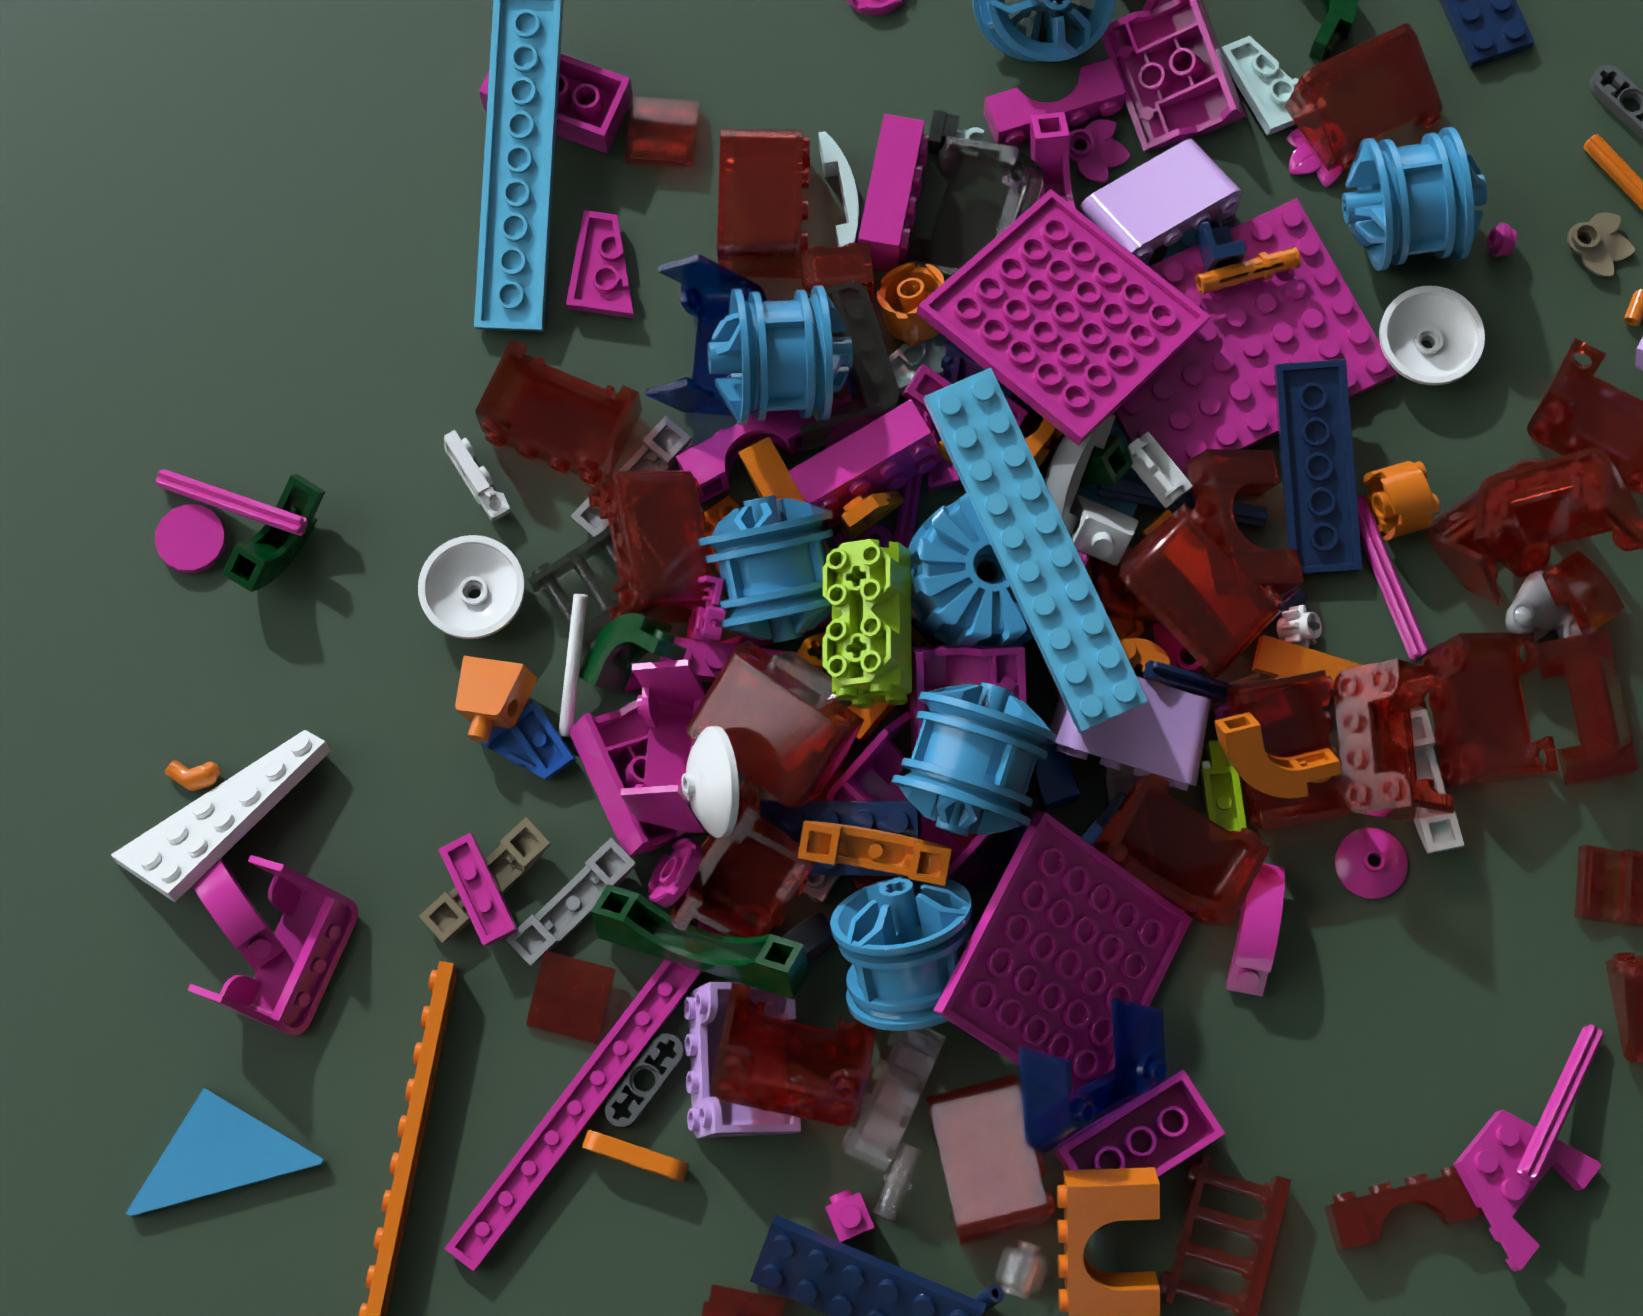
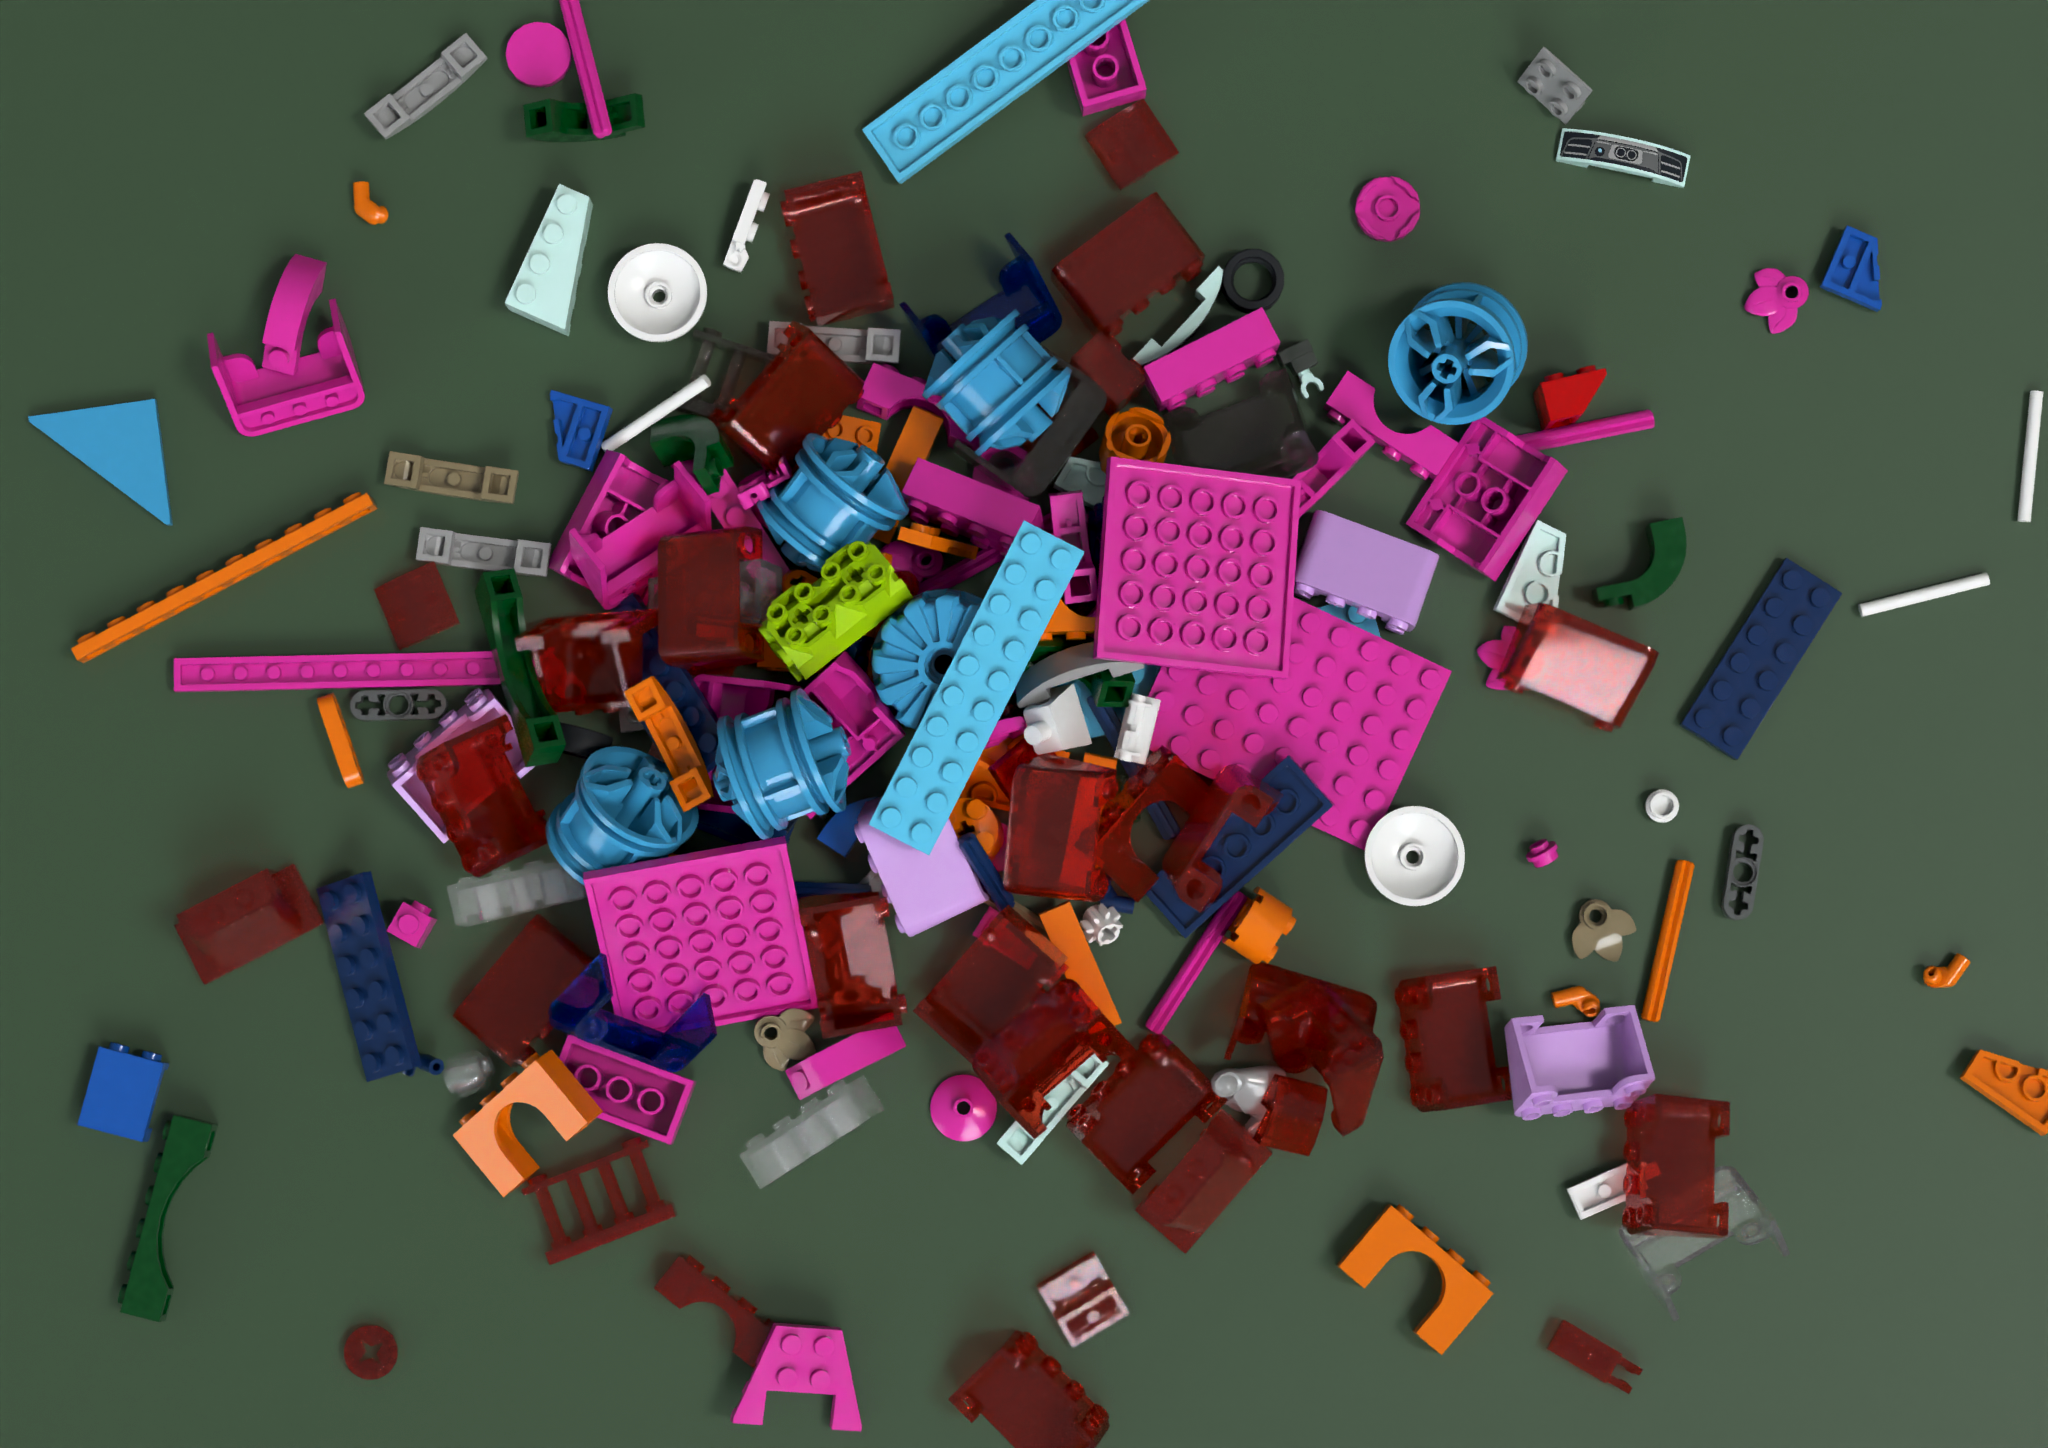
camera: 45 degrees right, 10 degrees up
(140, 648) = (427, 89): none -> light grey slope
(196, 837) = (327, 247): white wing -> none
(381, 665) = (553, 264): none -> light aqua wedge
(478, 890) = (440, 478): dark pink plate -> none
(492, 694) = (588, 373): orange torso -> none
(599, 269) = (983, 186): dark pink wing -> none
(674, 873) = (560, 609): dark pink tile -> none
(713, 782) = (628, 587): white dish -> none
(857, 98) = (1252, 256): none -> black tyre
(897, 1182) = (464, 939): clear pin -> none
(1101, 150) = (1378, 491): dark pink plate -> none
(1202, 964) = (790, 1038): none -> dark tan plate
(1218, 247) = (1356, 642): dark blue panel -> none
(1221, 790) = (929, 961): lime hinge -> none
(1260, 267) = (1365, 687): orange pin -> none
(1273, 775) = (959, 982): orange arch -> none
(1288, 472) = (1228, 793): none -> clear red windscreen
(1300, 1006) = (811, 1131): none -> clear wedge
(1414, 198) = (1508, 762): dark azure wheel -> none
(1529, 125) = (1662, 806): none -> white plate
(1560, 1103) = (880, 1368): dark pink axle -> none

